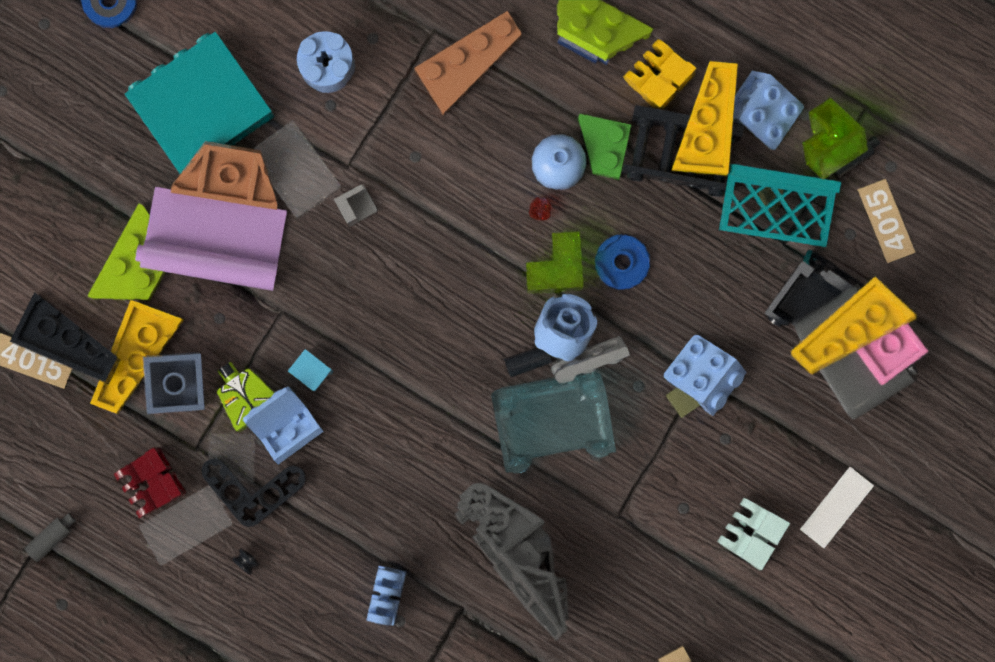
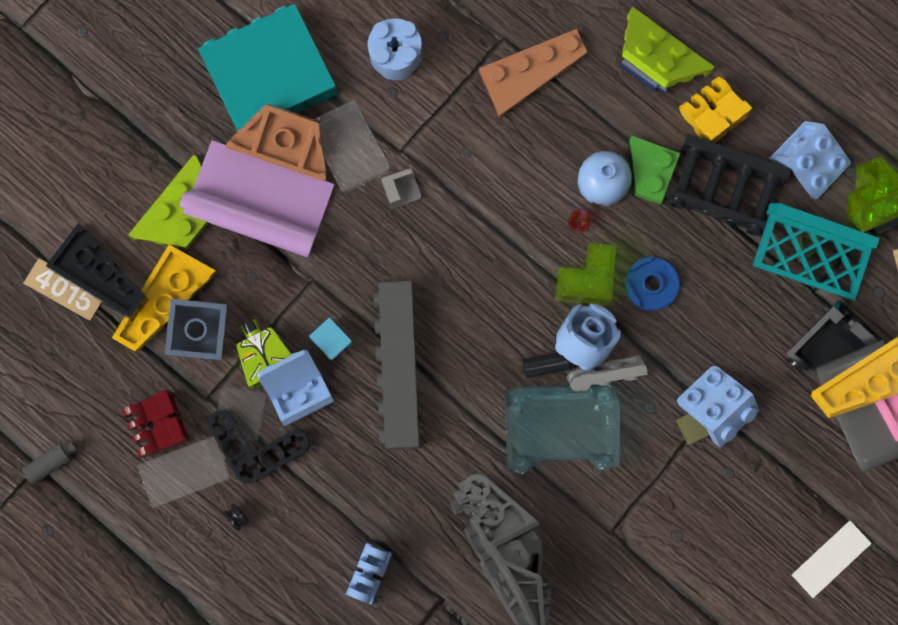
camera: 10 degrees right, 5 degrees down
(381, 384) = (398, 366): none -> dark grey brick
(709, 129) = (758, 166): yellow wing -> none
(766, 529) = (759, 569): light aqua legs -> none

